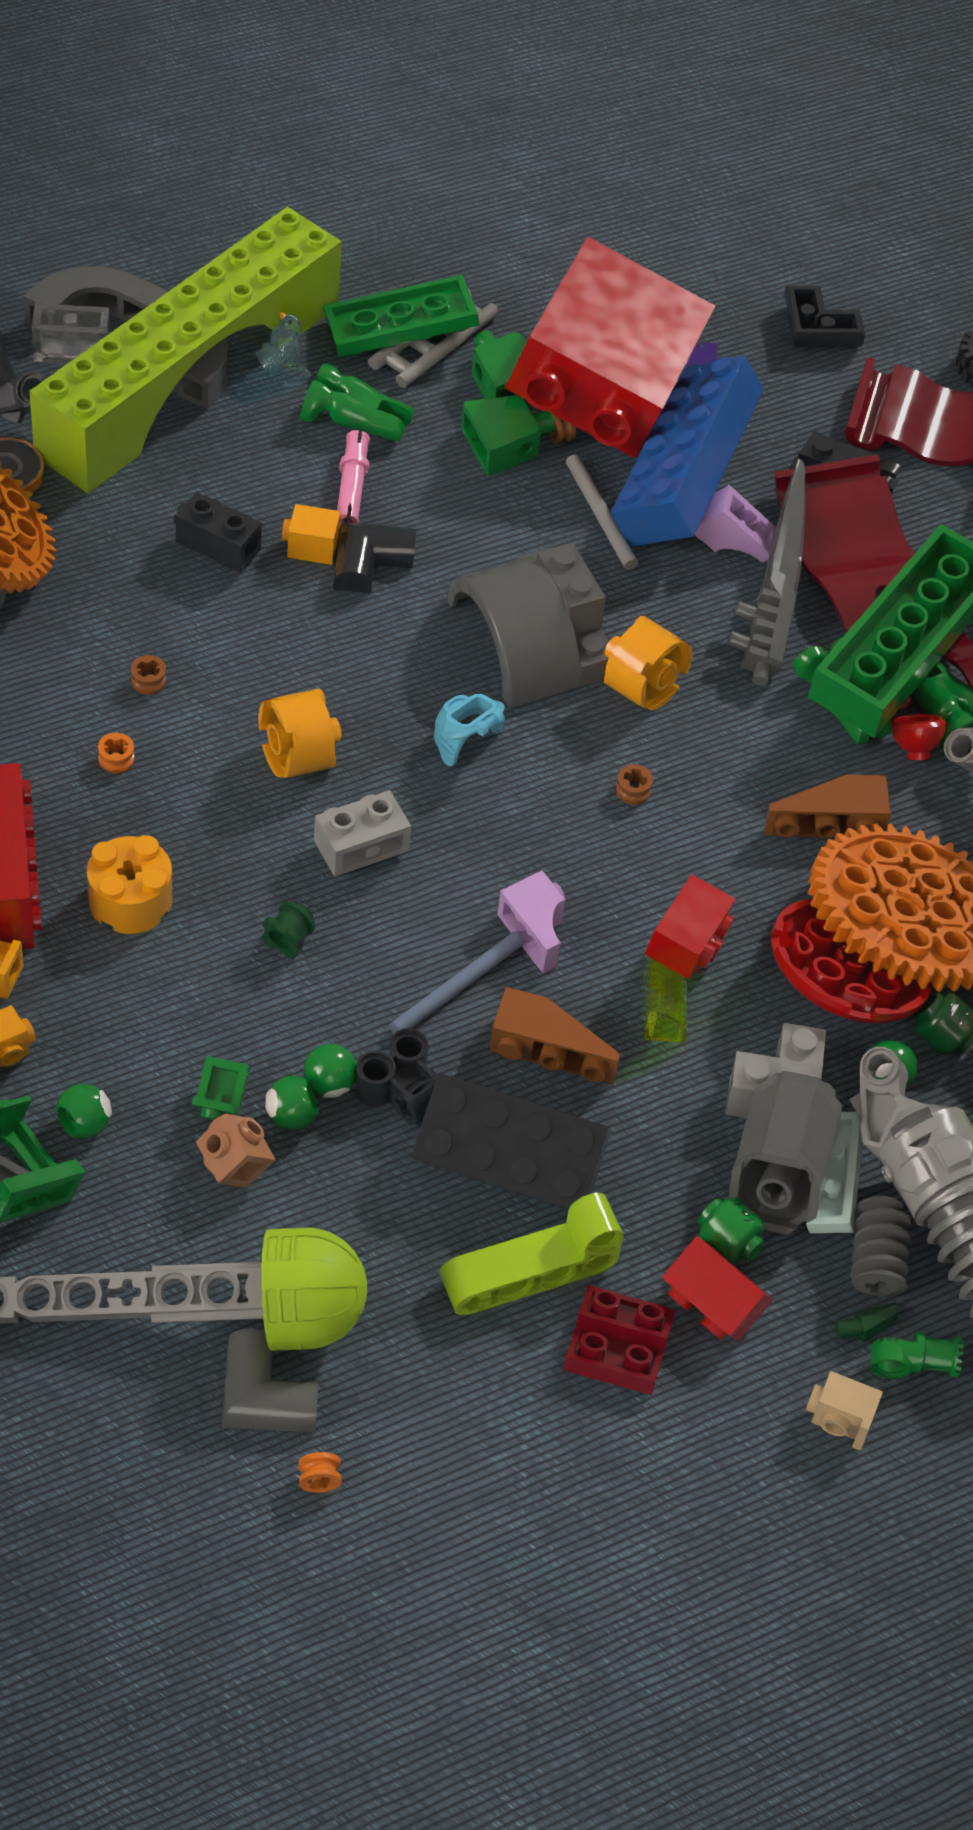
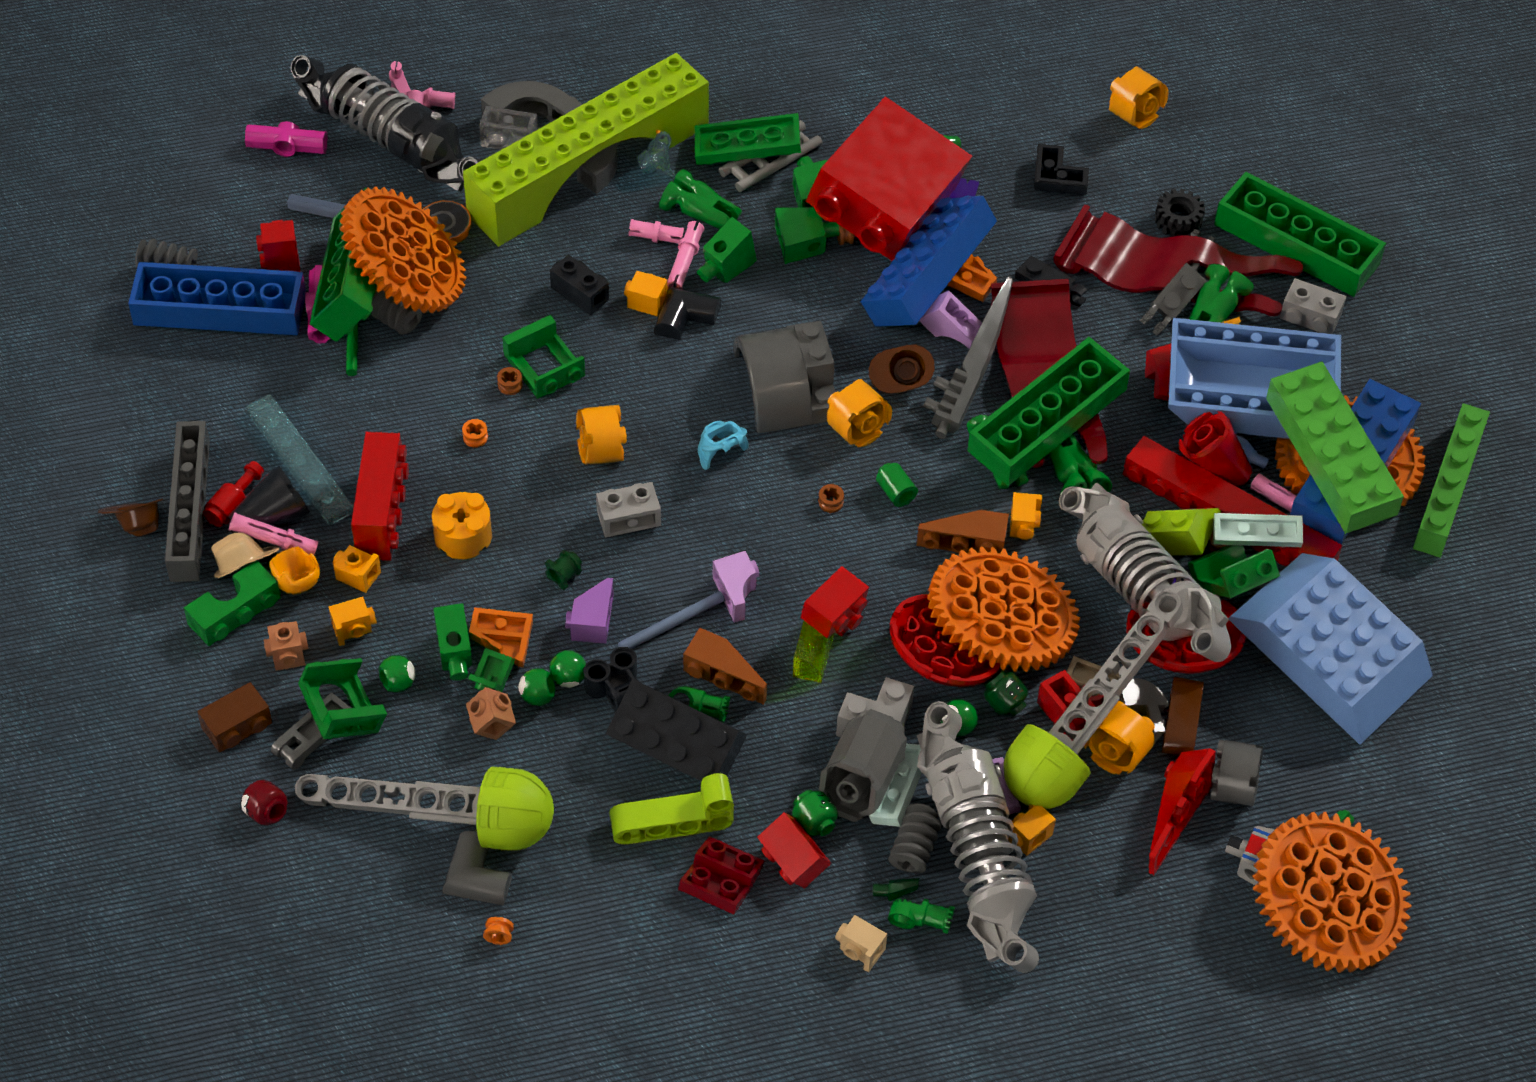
camera: 15 degrees right, 0 degrees up
(157, 1051) = (453, 640): none -> green torso
(170, 610) = (534, 337): none -> green panel
(222, 1029) = (502, 632): none -> orange wing
(304, 450) = (655, 231): none -> bright pink pin
(345, 988) = (591, 614): none -> medium lavender slope
(413, 467) = (728, 252): none -> green torso
(544, 1093) = (707, 704): none -> green connector
(601, 512) = (858, 295): light grey bar -> none
(689, 597) = (901, 369): none -> reddish brown piece
(719, 754) = (896, 484): none -> green brick
(750, 470) = (973, 279): none -> orange wing
(898, 215) = (1137, 97): none -> light orange brick
(903, 774) = (1025, 515): none -> light orange brick
(918, 734) = (1045, 484): red brick -> none

